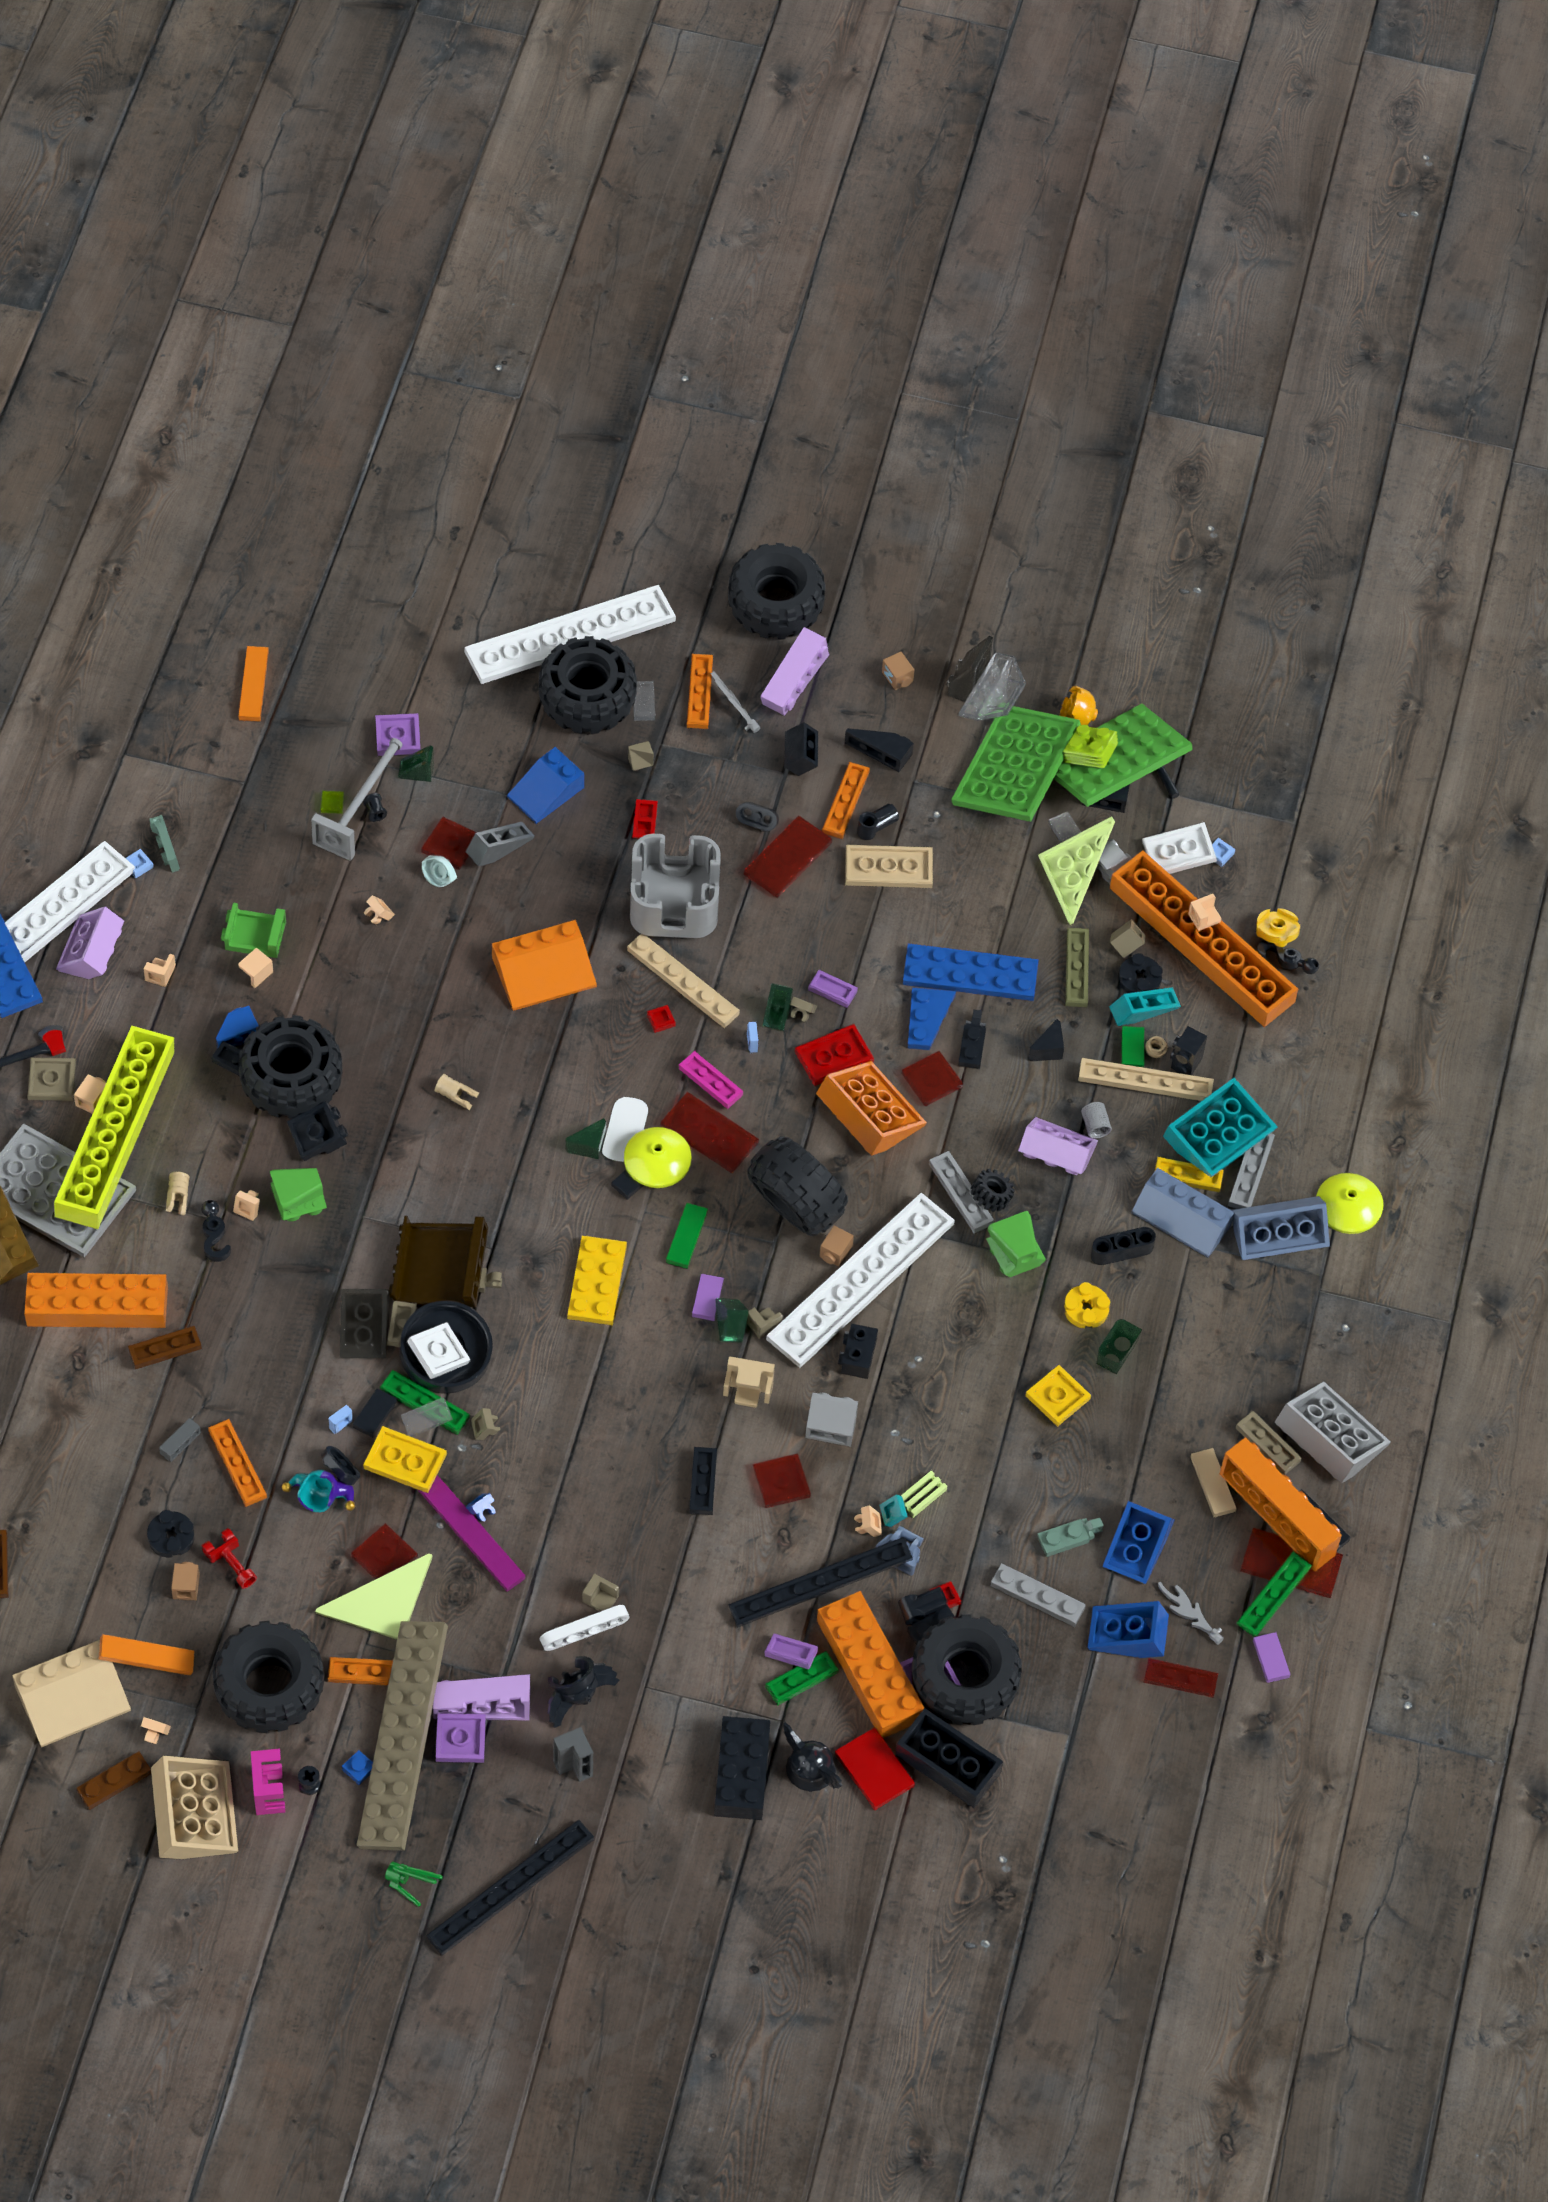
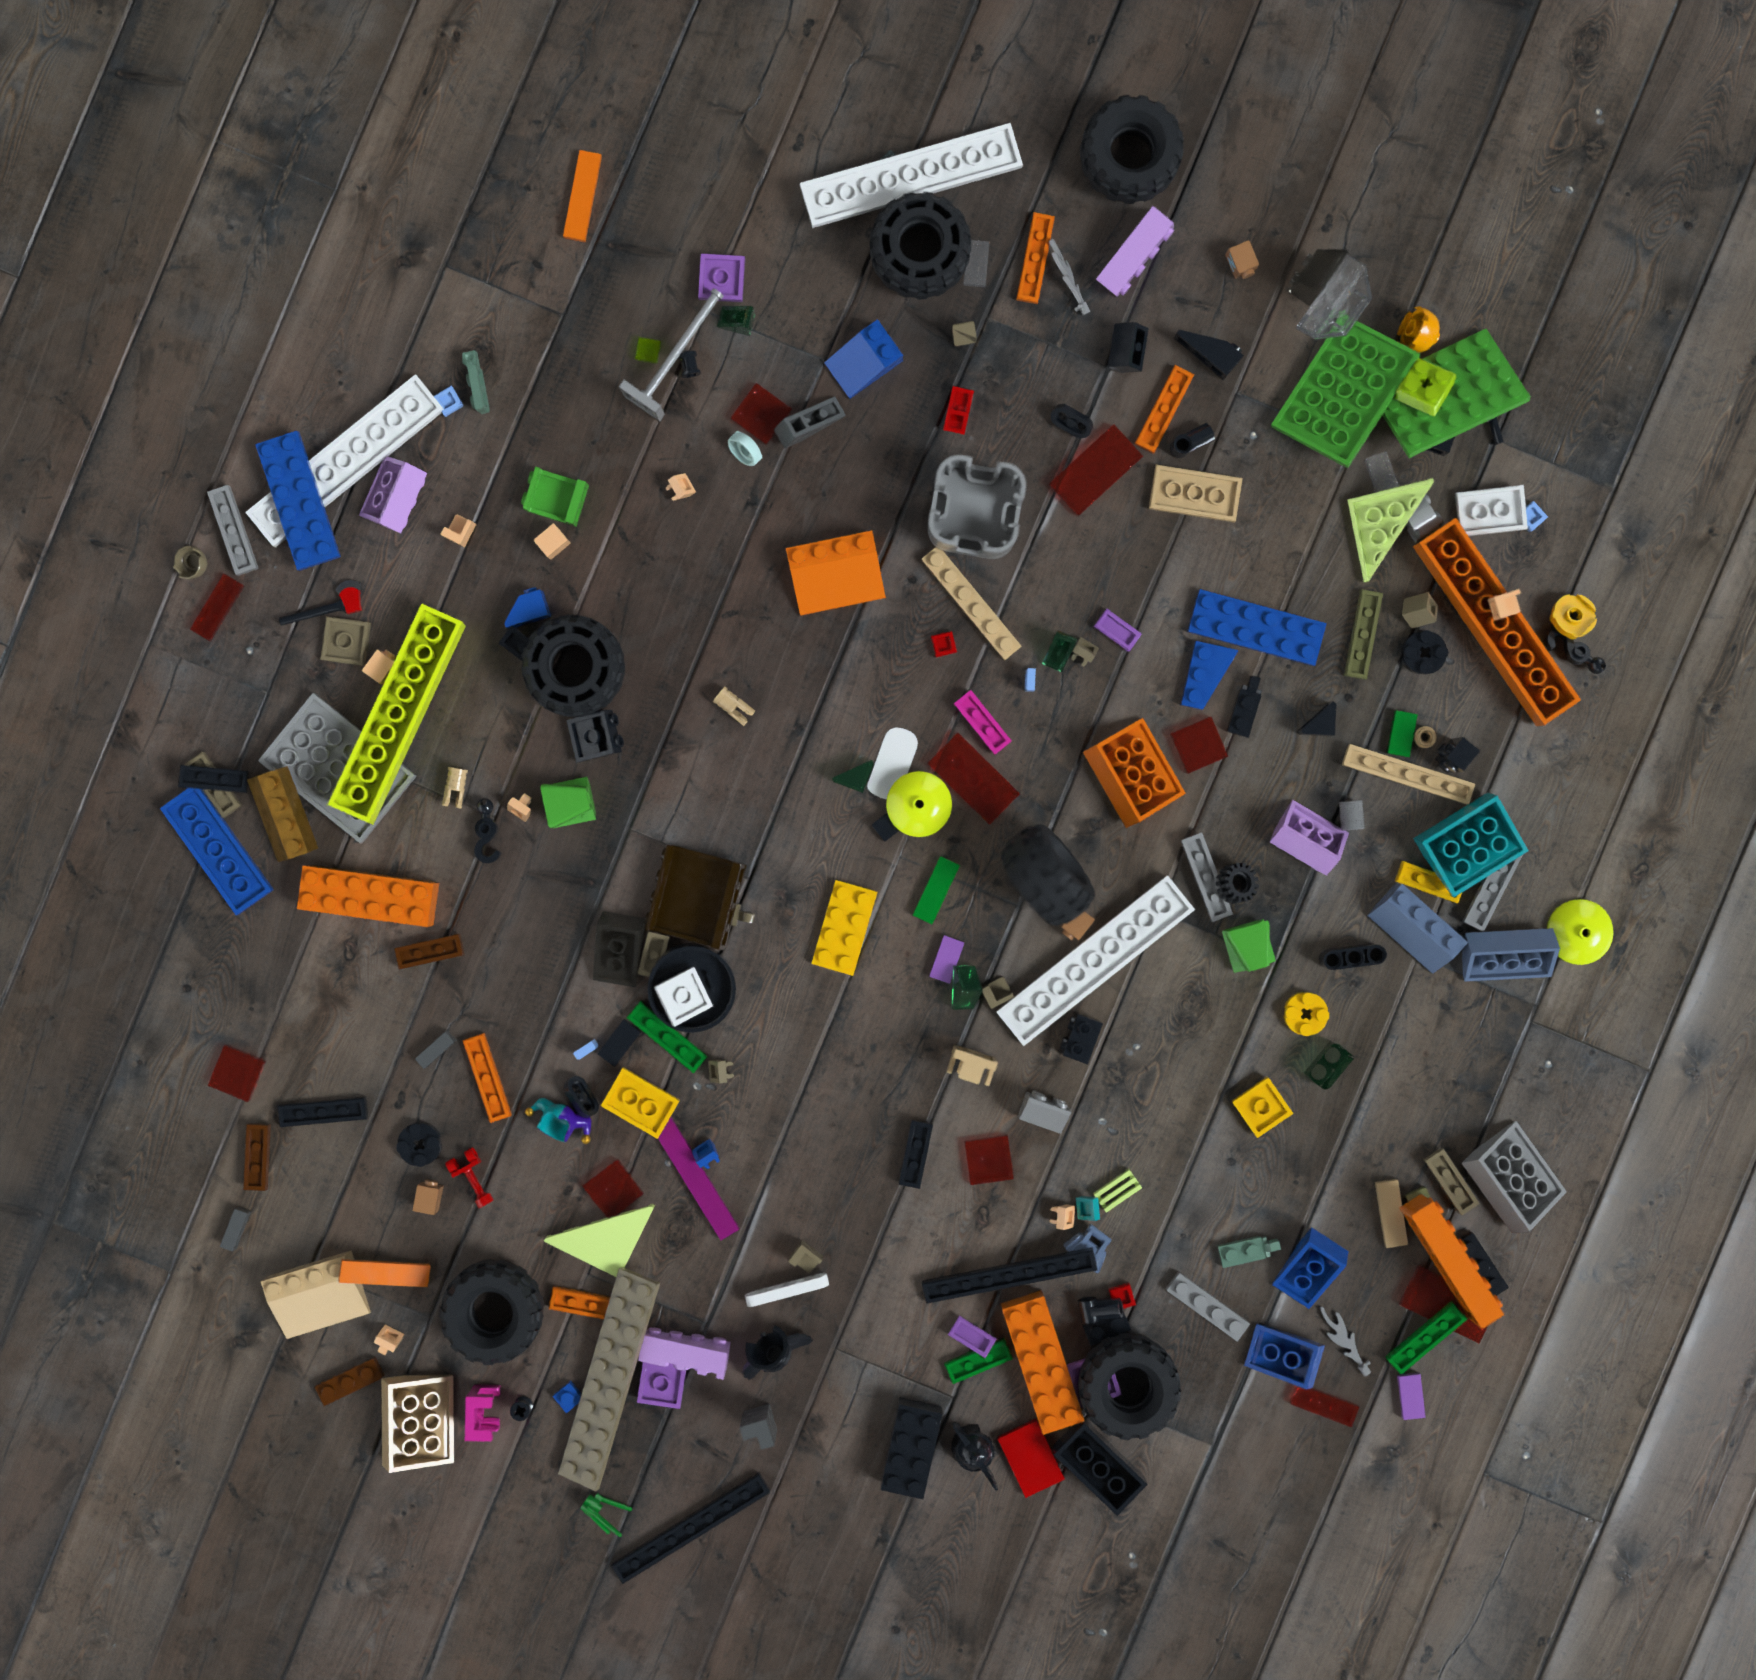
camera: 15 degrees right, 30 degrees up
(62, 1515) = (322, 1112): none -> black tile
(426, 1417) = (666, 1057): clear tile -> none
(833, 1053) = (1107, 706): red tile -> none
(1143, 1005) = (1422, 691): teal slope -> none

